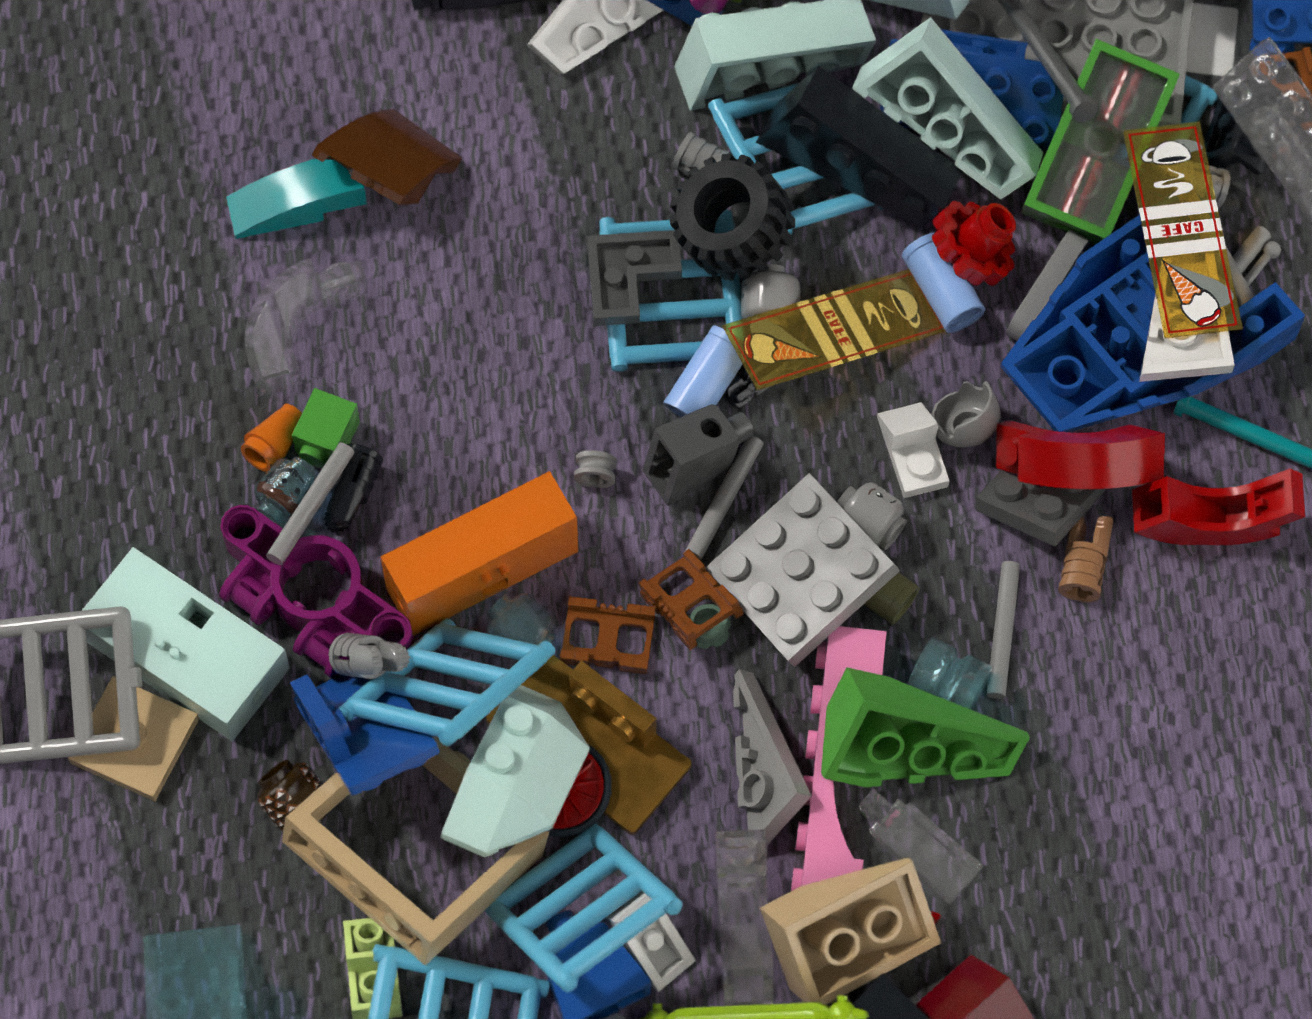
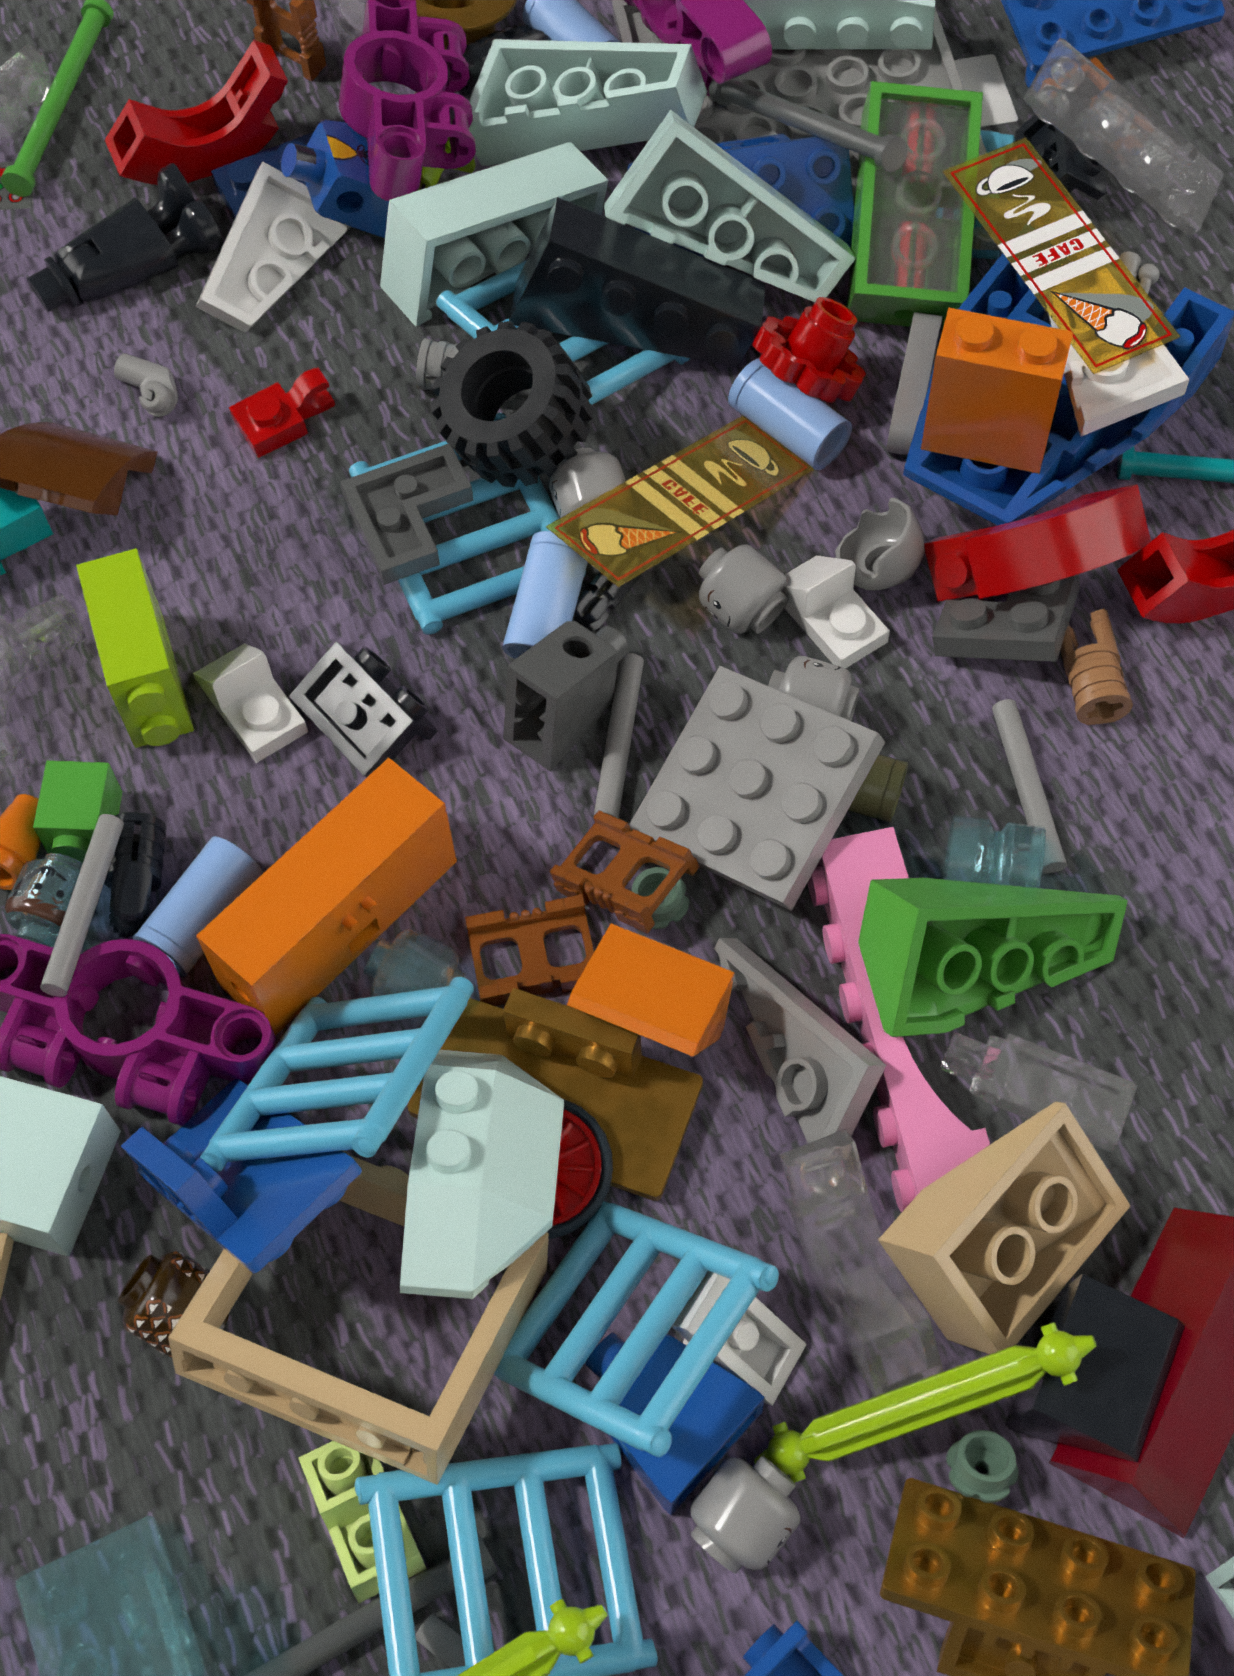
camera: 15 degrees left, 5 degrees down
(368, 656) = (220, 1075): light grey hinge -> none
(390, 526) = (198, 897): none -> light blue pin
(400, 322) = (134, 649): none -> lime brick
(470, 382) = (251, 701): none -> white slope
(477, 98) = (154, 381): none -> light grey arm
(548, 416) = (361, 707): none -> bracket
(557, 157) = (276, 417): none -> red plate
(595, 469) = (444, 751): light grey bush -> none
(675, 695) = (654, 991): none -> orange slope
(853, 413) = (742, 589): none -> light grey head
(1079, 334) = (995, 389): none -> orange slope

